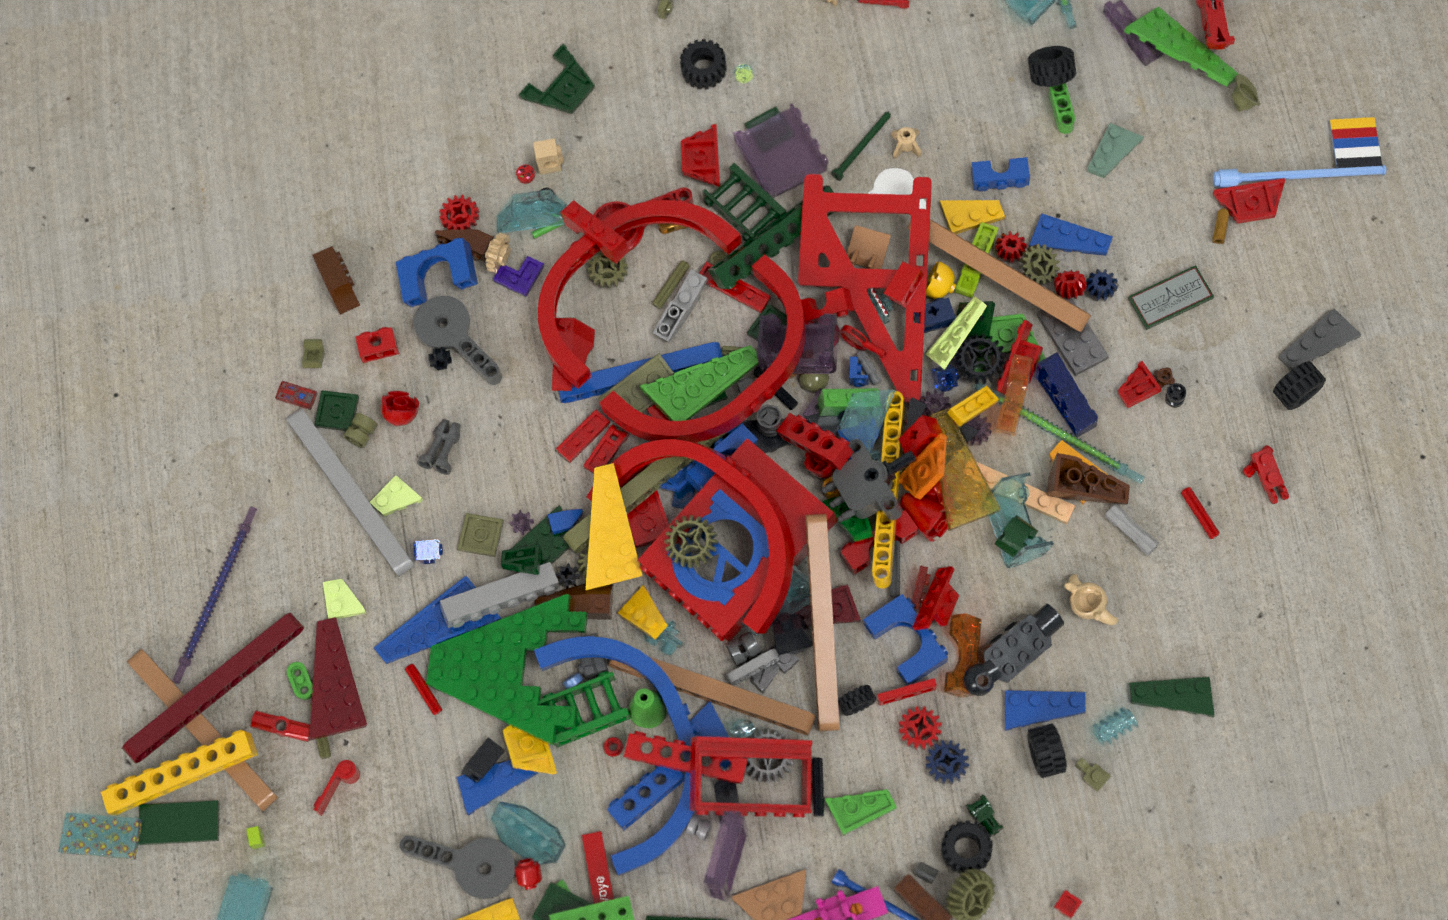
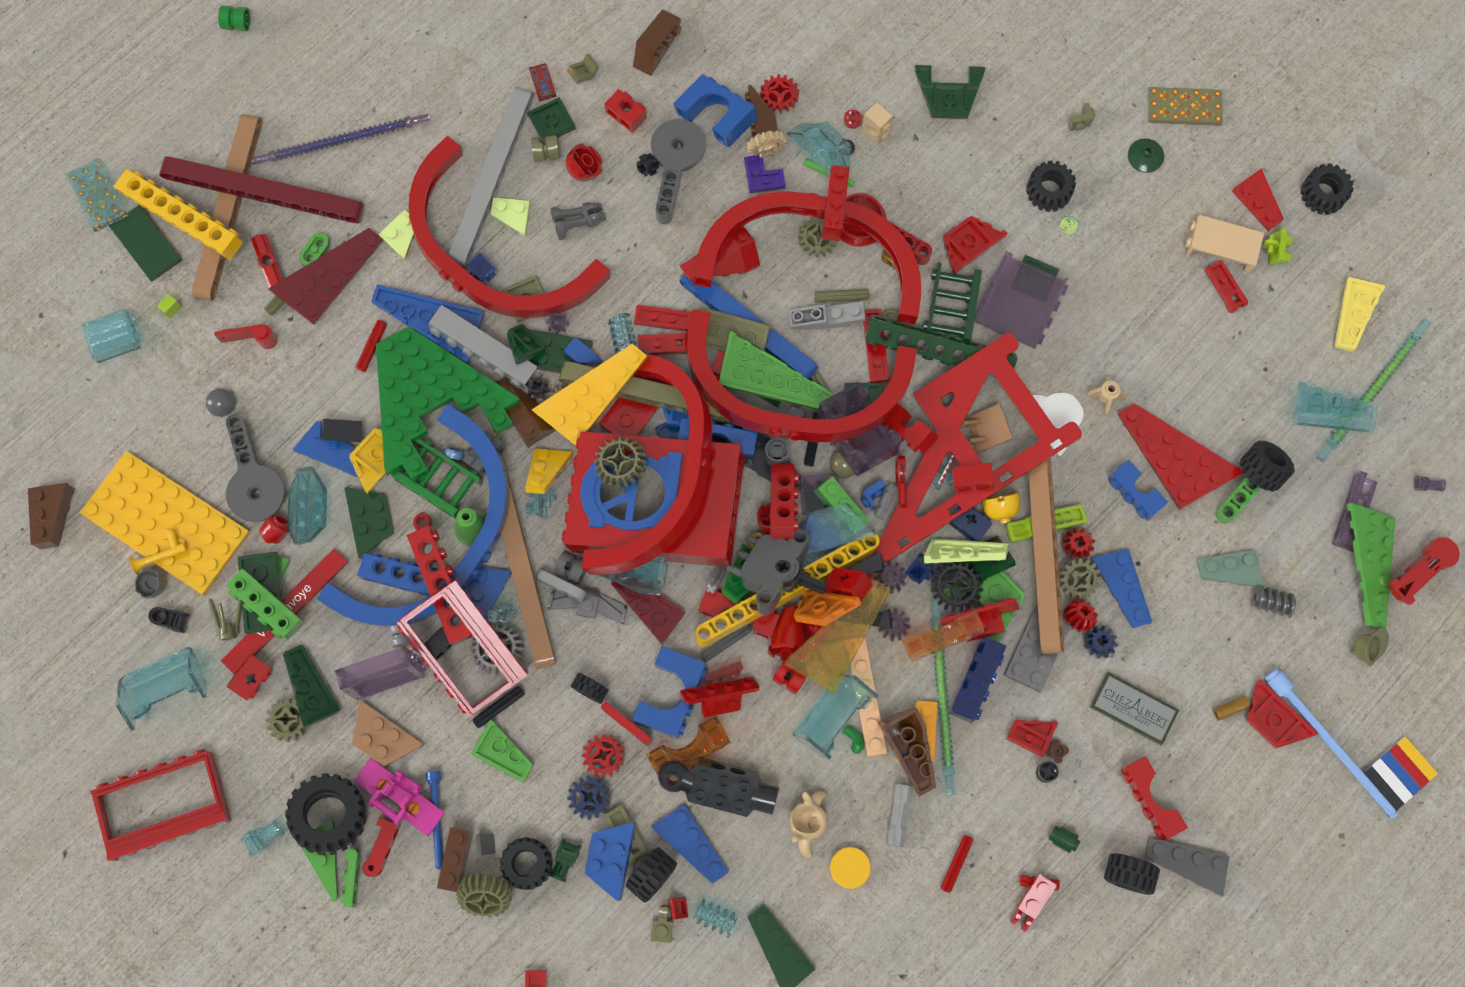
camera: 45 degrees right, 5 degrees up
(30, 611) = (234, 18): none -> green wheel
(377, 849) = (220, 402): none -> dark grey hair
(424, 573) = (532, 306): none -> red arch
(573, 478) = (620, 331): none -> clear light blue piece
(576, 789) = (369, 519): none -> dark green wing
(791, 633) = (607, 596): black torso -> none
(822, 622) = (631, 613): beam -> none
(838, 173) = (1037, 359): dark green bar -> none
(838, 540) = (716, 580): none -> light grey axle
(967, 536) = (794, 683): none -> red wheel
(968, 214) = (1082, 489): yellow wing -> none
(973, 406) = (909, 608): yellow plate -> none
(997, 752) = (619, 817): none -> olive plate
(999, 128) = (1179, 462): none -> red wing
(1008, 777) = (610, 858): none -> blue wing
(1015, 536) = (820, 721): dark green cylinder -> none
(1048, 521) = (857, 739): none -> green arm
(1087, 752) = (678, 908): none -> red slope
(1147, 595) = (850, 867): none -> yellow tile
(1158, 136) = (1274, 599): none -> dark grey piece
(1227, 330) = (1139, 776): none -> red arch
(1237, 418) = (1064, 839): none -> dark green brick

